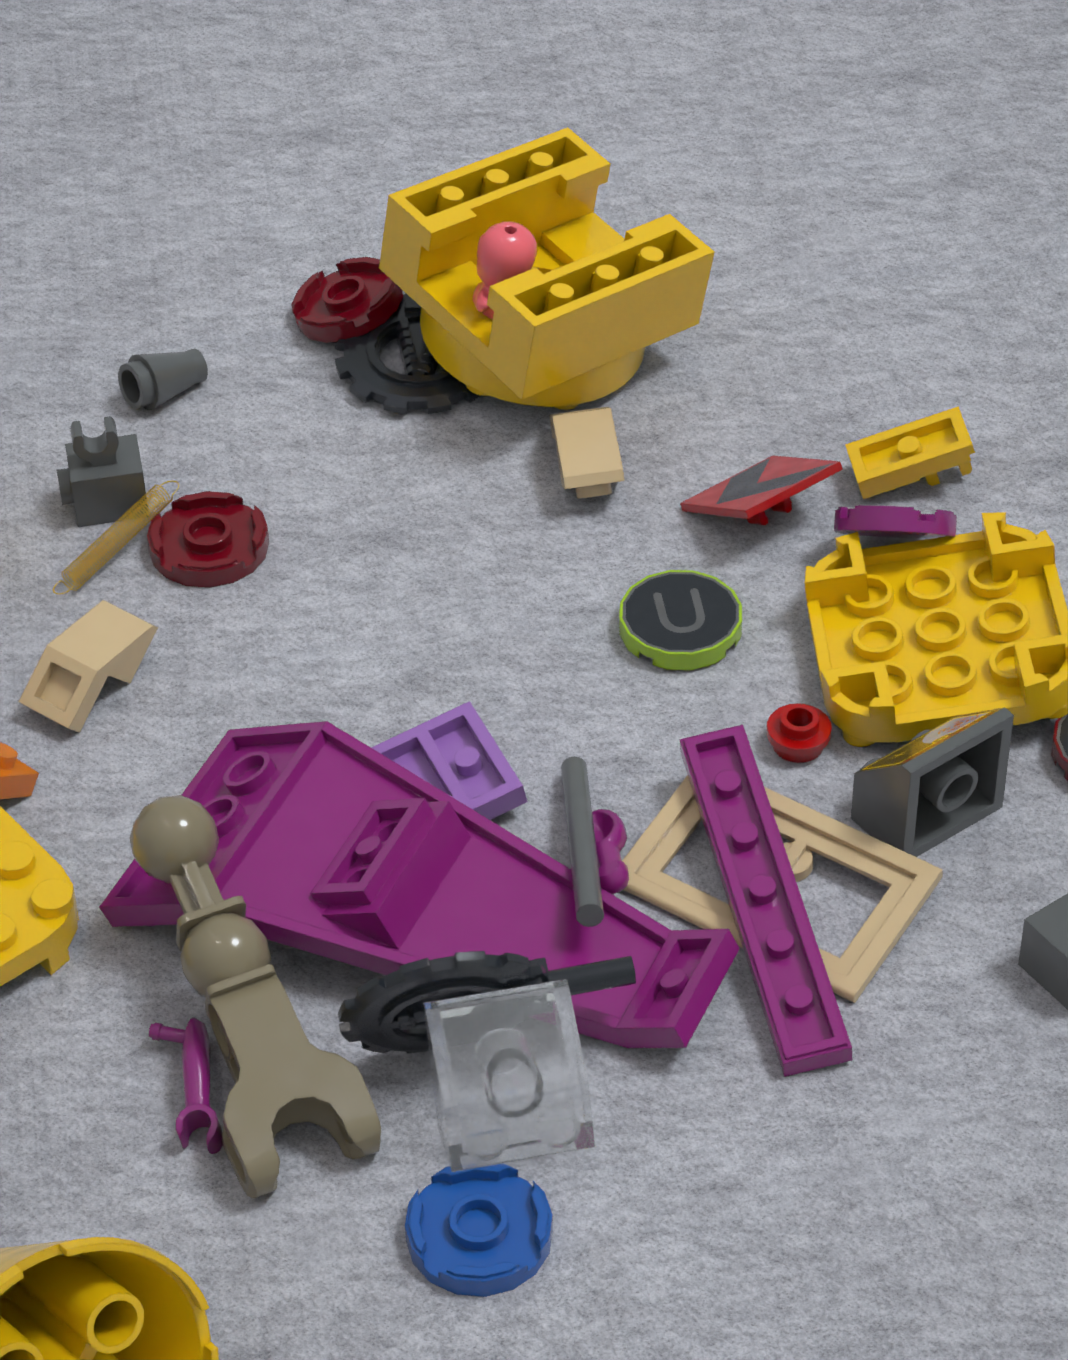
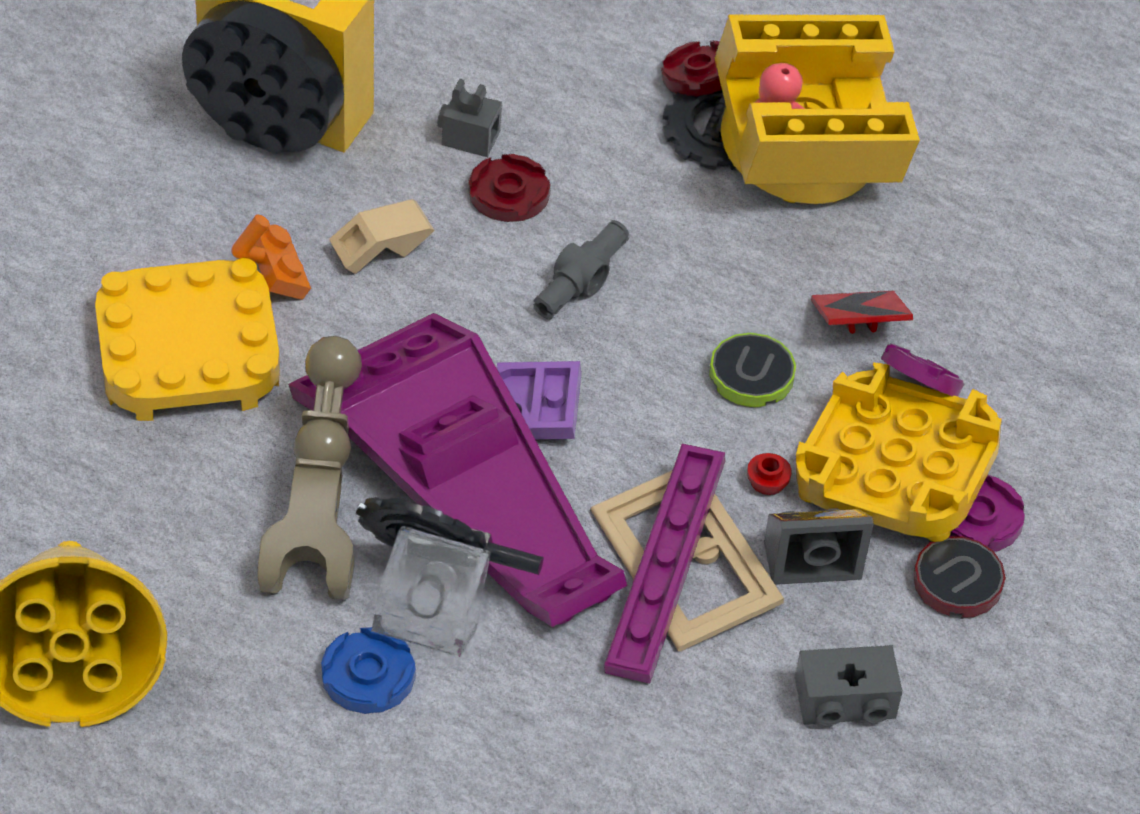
camera: 25 degrees right, 5 degrees up
(98, 552) = (452, 166): yellow piece -> none
(158, 377) = (551, 69): dark grey cone -> none
(196, 1081) = (269, 510): magenta piece -> none
(380, 594) = (581, 269): none -> dark grey pin
(582, 842) = (581, 477): dark grey bar -> none
(587, 451) = (772, 234): tan slope -> none
(610, 840) = (598, 483): magenta piece -> none
(911, 452) = (974, 329): yellow plate -> none

